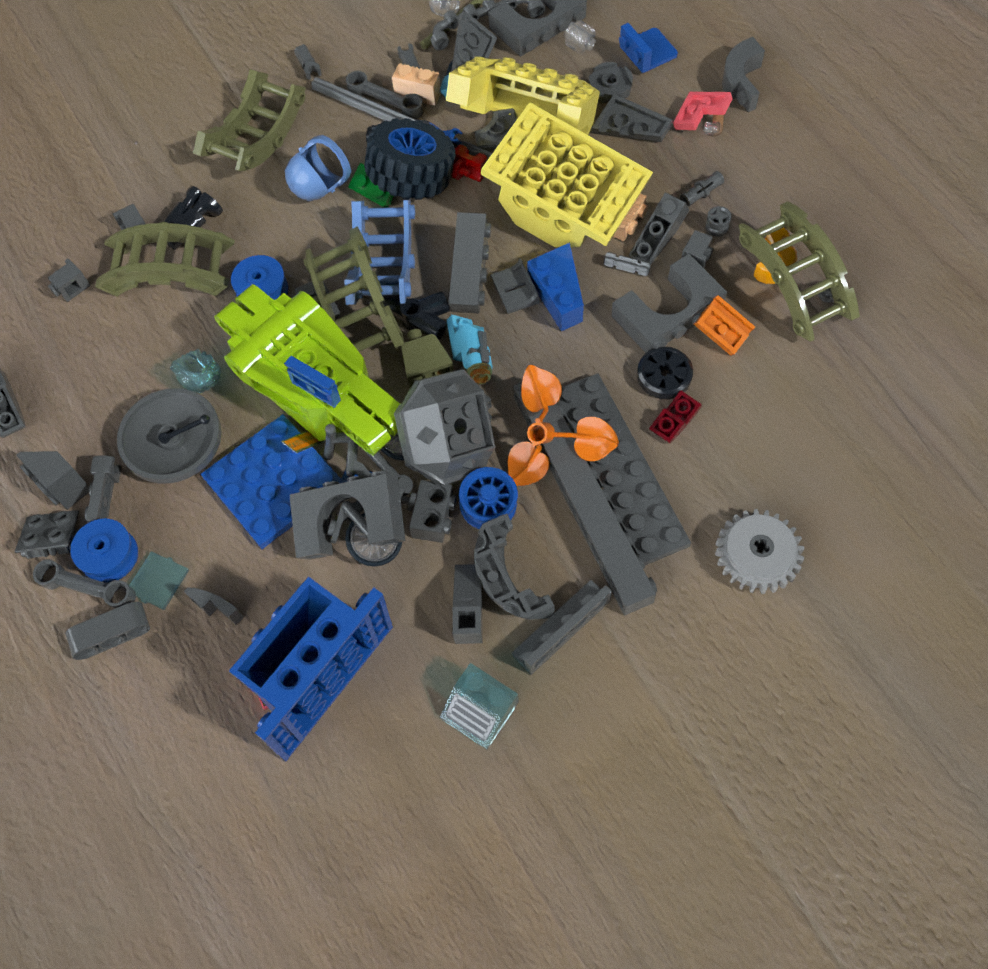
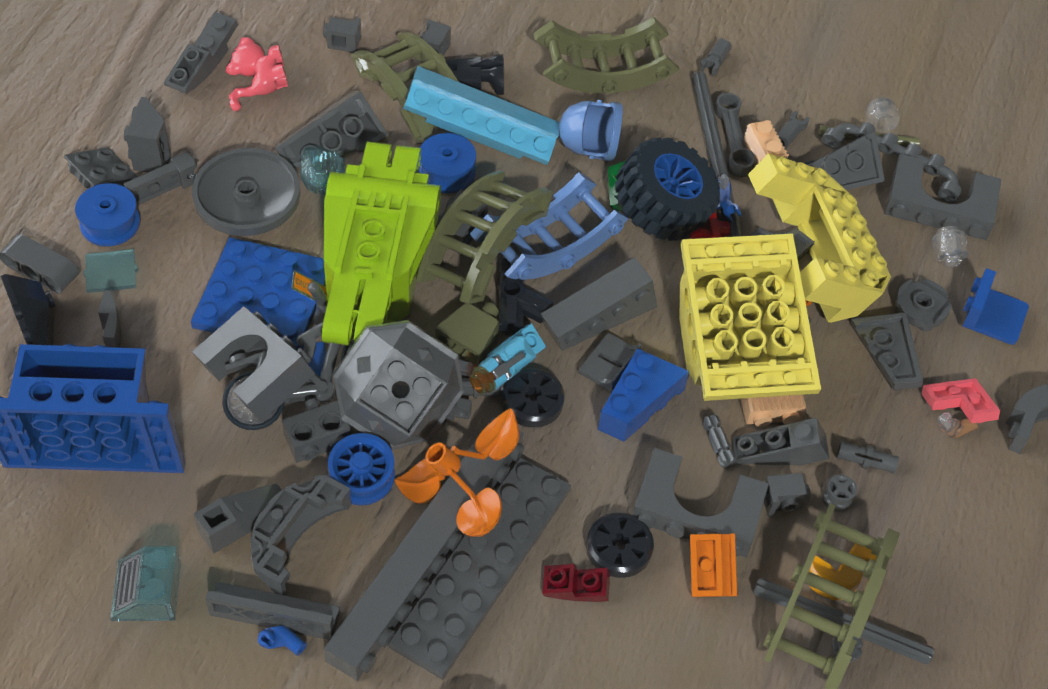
camera: 45 degrees right, 10 degrees down
(36, 361) = (250, 60): none -> coral animal
(82, 584) = (69, 221): dark grey piece -> none
(159, 661) = (31, 309): none -> black wedge
(161, 338) = (337, 130): none -> dark grey wedge
(165, 438) = (238, 188): black hinge -> none
(239, 234) = (481, 116): none -> medium azure slope
(313, 381) = (344, 237): blue plate -> none
(523, 353) = (546, 390): none -> black wheel
(587, 632) = (281, 637): none -> blue arm
(776, 298) = (872, 632): none -> dark grey axle

